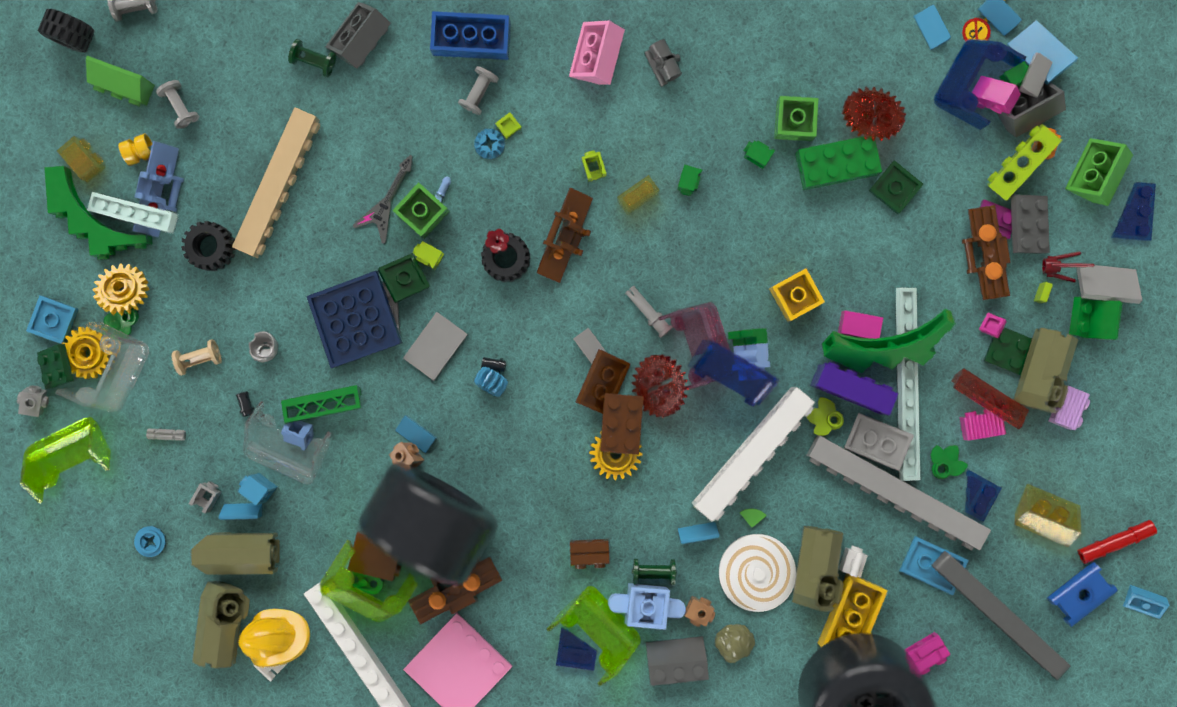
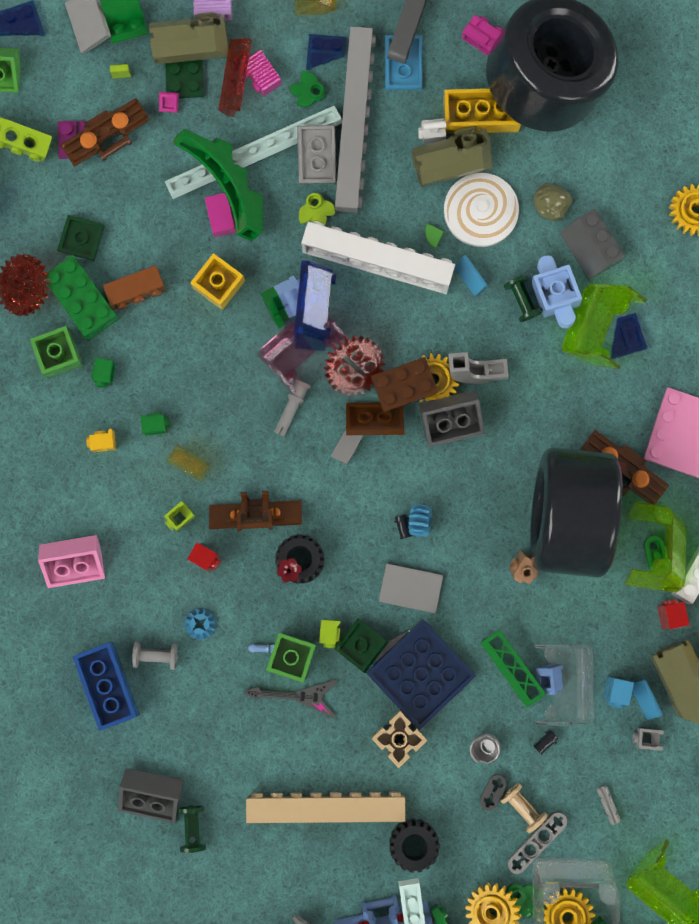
camera: 120 degrees left, 5 degrees down
(160, 357) = (539, 844): none -> light grey beam
(226, 334) = (497, 794): none -> dark grey beam
(295, 270) = (411, 739): none -> tan brick
(302, 570) = (673, 614): none -> red brick
(372, 561) = (630, 554): reddish brown brick -> none
(415, 433) = (499, 569): dark azure slope -> none
(508, 125) = (175, 614): lime tile -> none
(544, 171) = (204, 557): none -> red brick
(570, 453) = (451, 418): none -> dark grey brick
(589, 552) = (533, 363): reddish brown brick -> none
(608, 489) = (476, 372): none -> light grey arch
(663, 62) = (55, 495): dark grey pin -> none
(694, 125) = (101, 441): none -> yellow brick
(696, 605) = (539, 243): medium nougat brick -> none
(825, 216) = (134, 288): none -> dark orange brick
(854, 389) = (279, 192): dark purple brick -> none
(1030, 224) = (63, 108): dark grey plate -> none
(1052, 265) = (93, 74): dark red plant -> none

